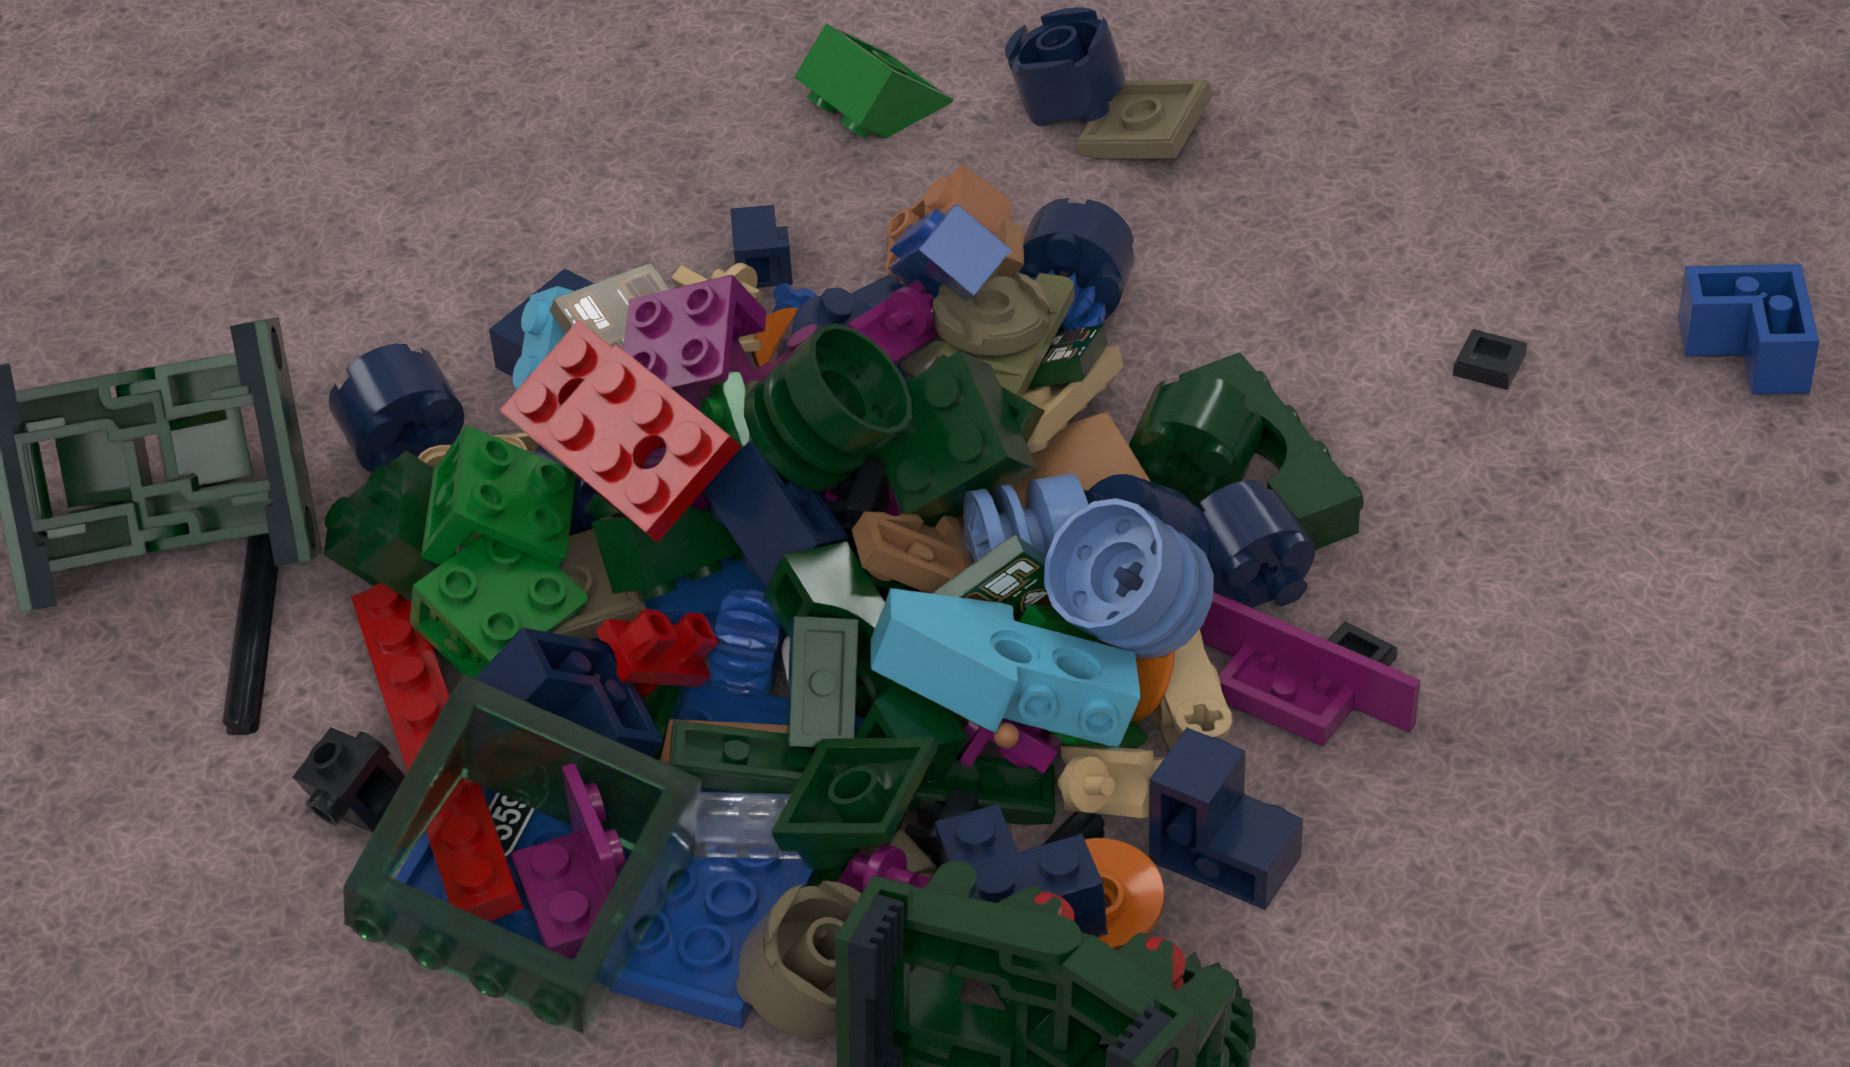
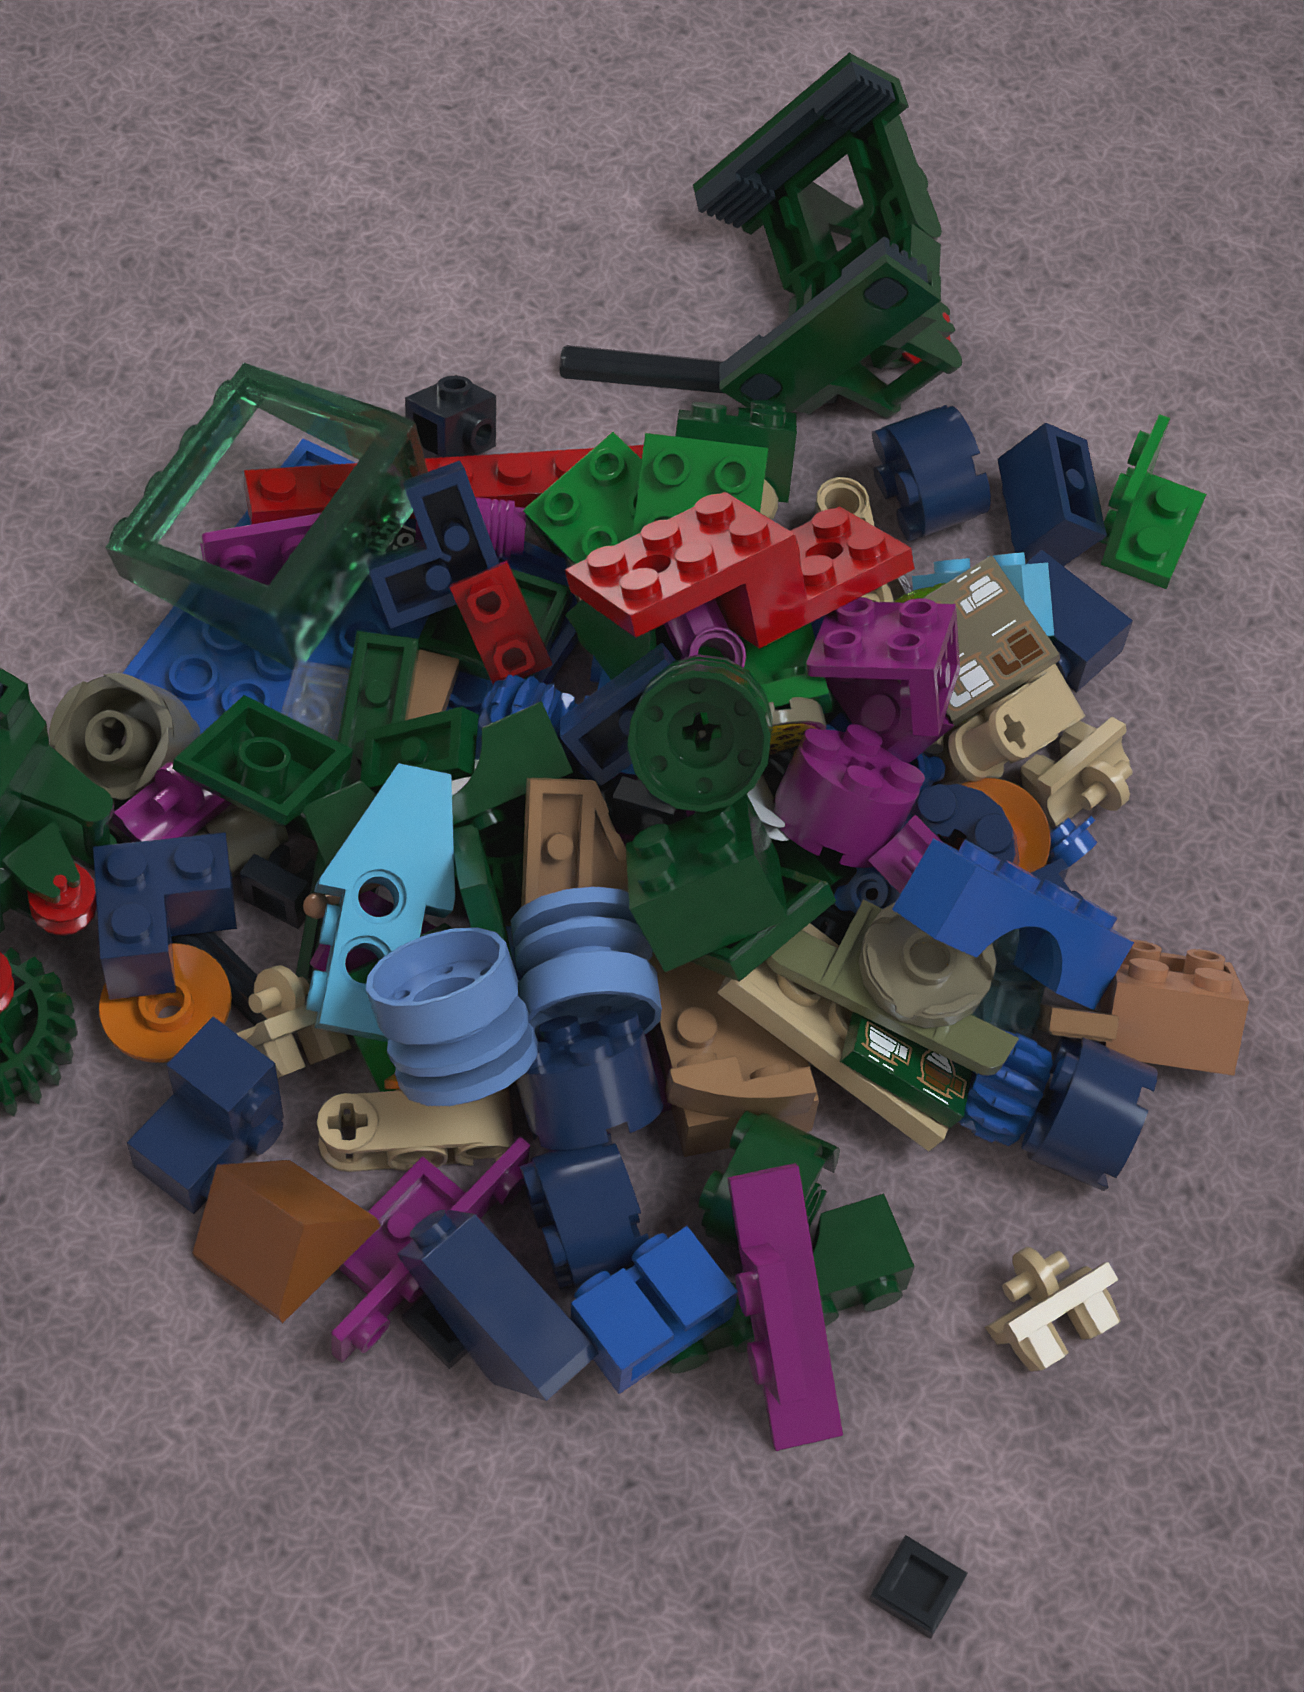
camera: 90 degrees right, 15 degrees up
(420, 274) = (1151, 517): none -> green bracket
(436, 323) = (1051, 495): none -> dark blue brick
(762, 244) = (1181, 816): dark blue brick -> none
(1123, 425) = (718, 1087): none -> medium nougat slope
(1239, 294) = (1079, 1295): none -> tan hips
(1317, 395) = (784, 1307): none -> magenta bracket
(1322, 760) = (277, 1232): none -> dark orange slope
(1346, 494) = (652, 1308): none -> blue piece
(1364, 576) = (495, 1305): none -> dark blue slope

